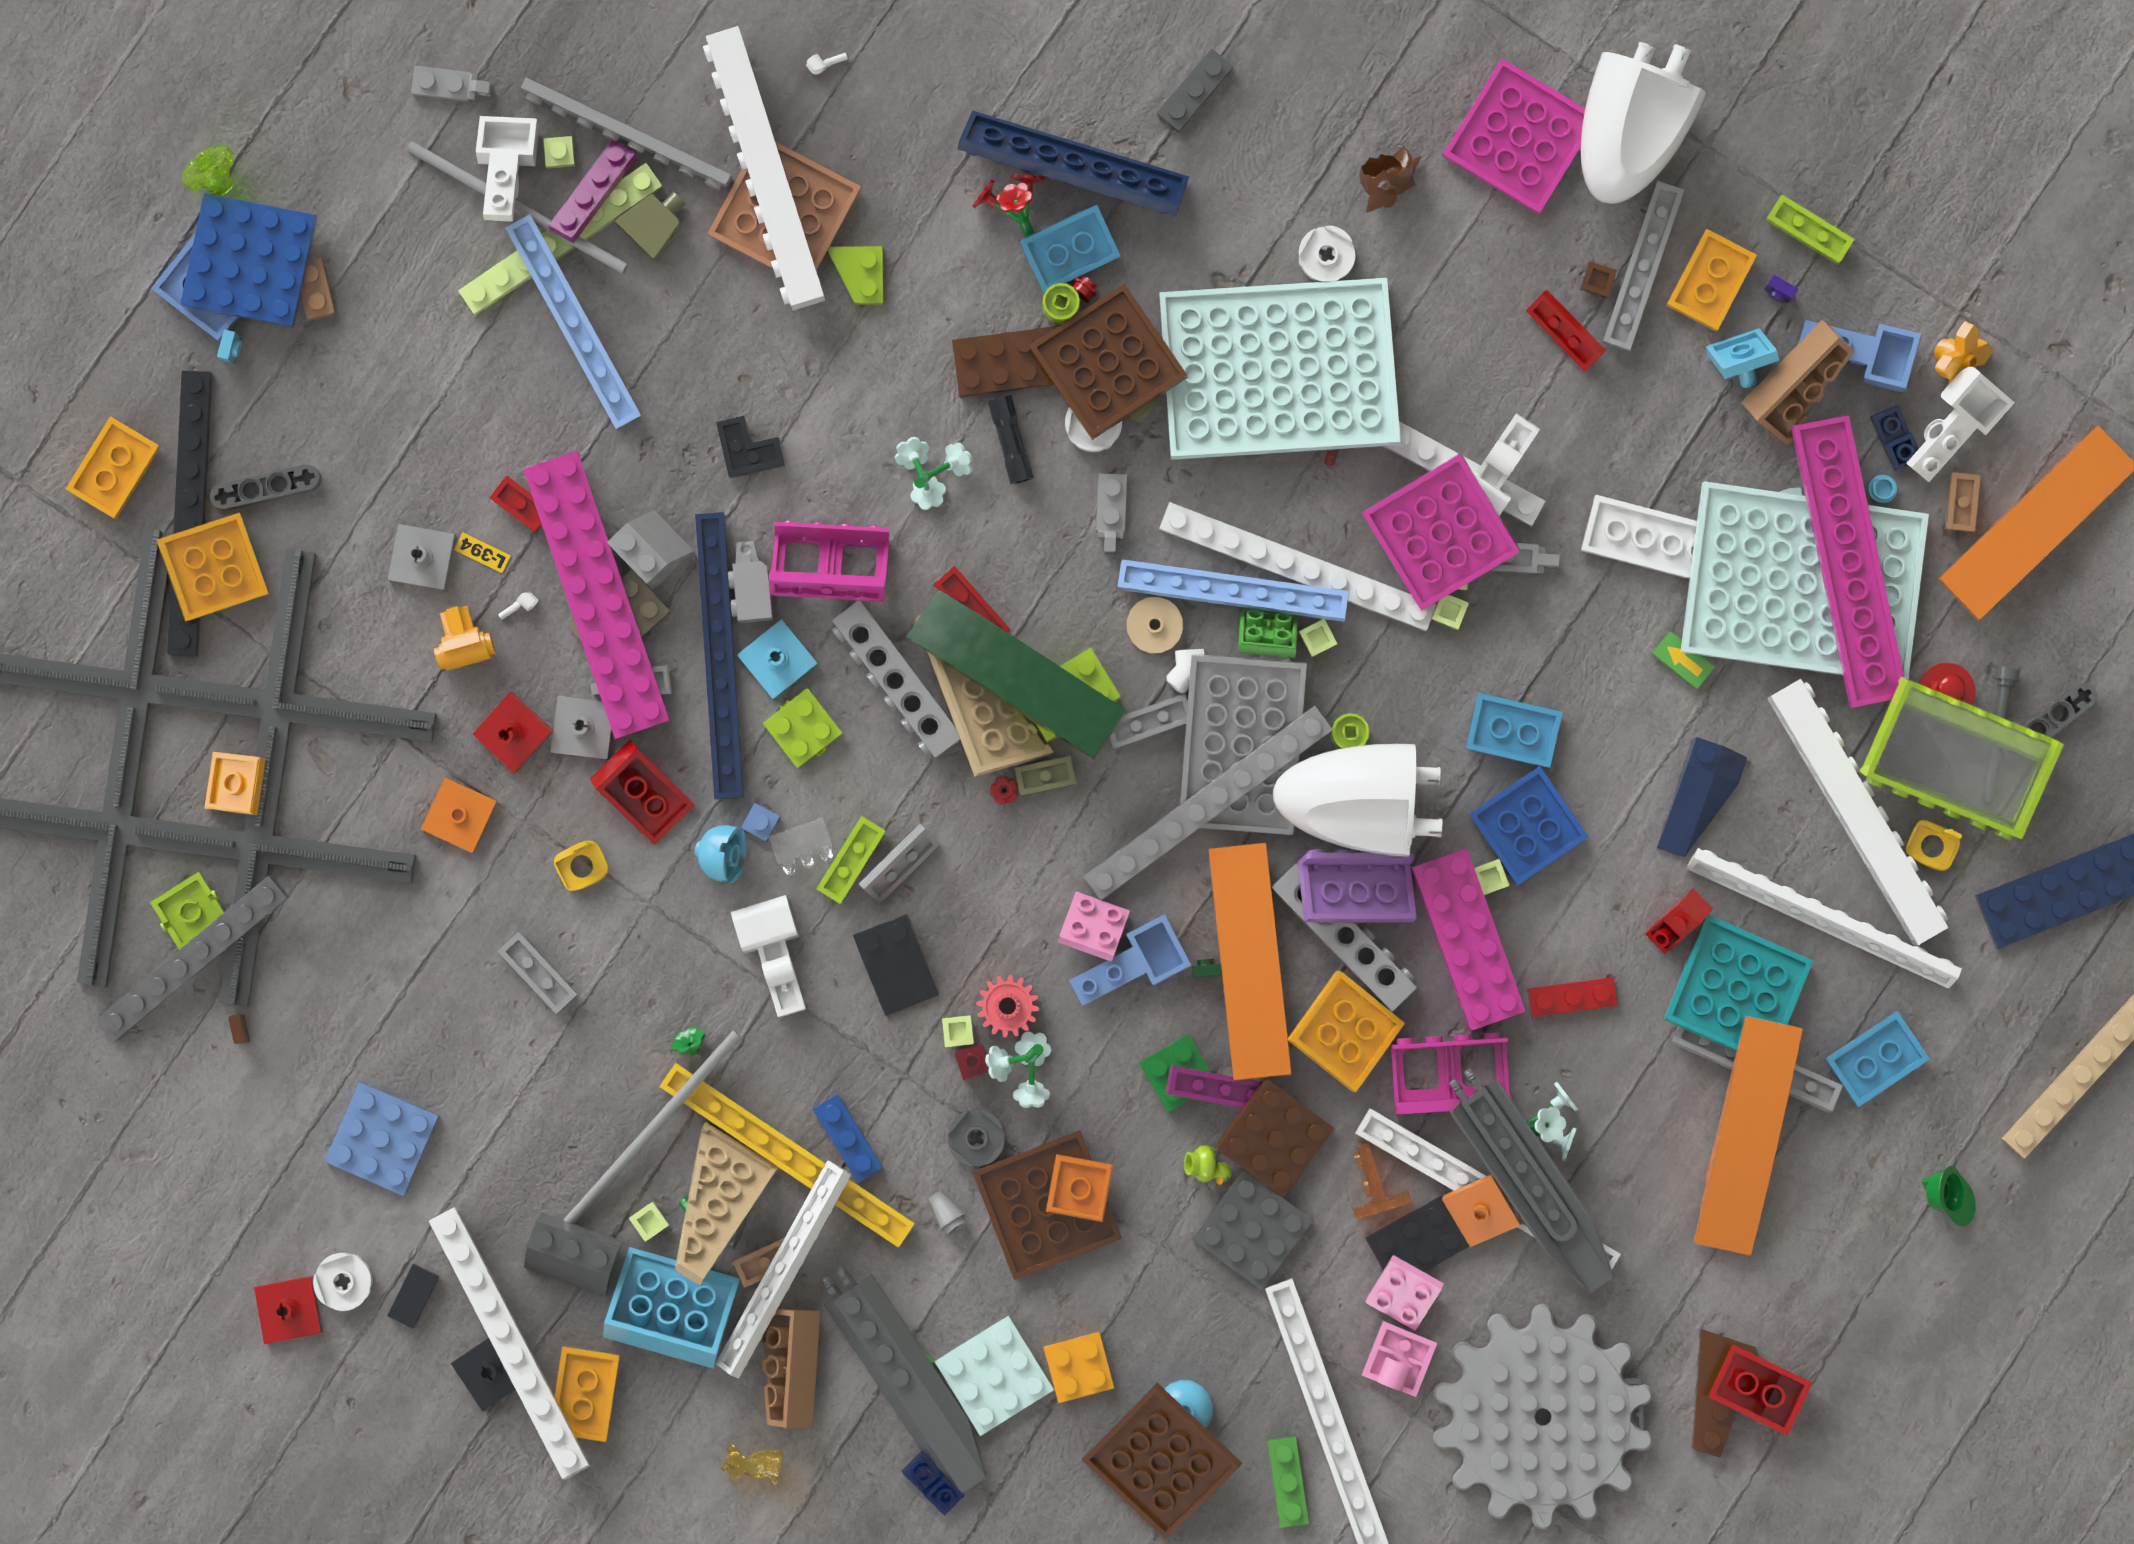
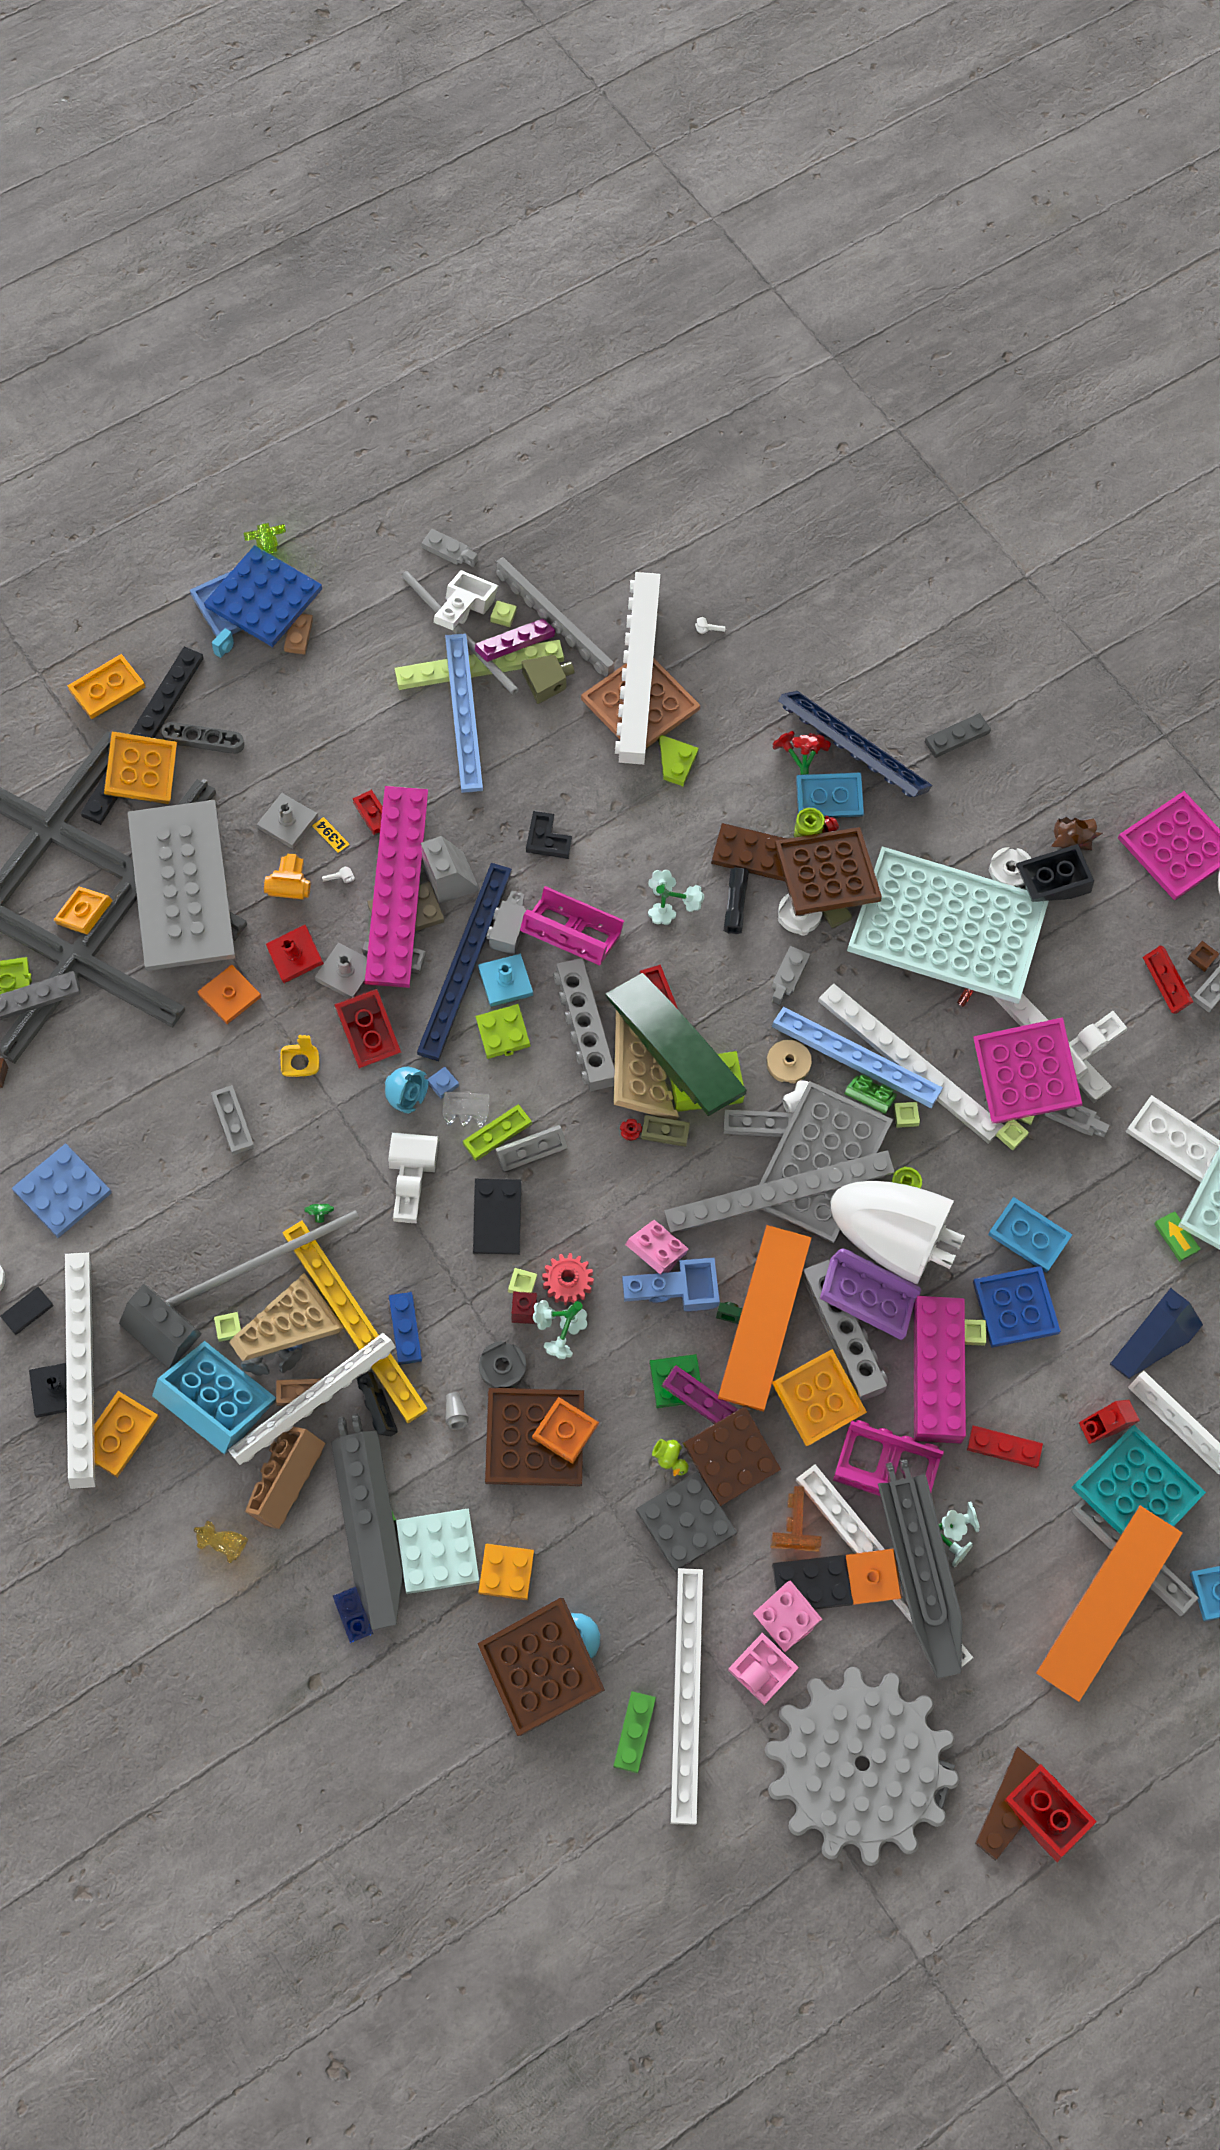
camera: 15 degrees right, 20 degrees down
(337, 704) = (180, 885): none -> light grey plate
(858, 1243) = (377, 1405): none -> black hinge
(1384, 249) = (1056, 875): none -> black slope

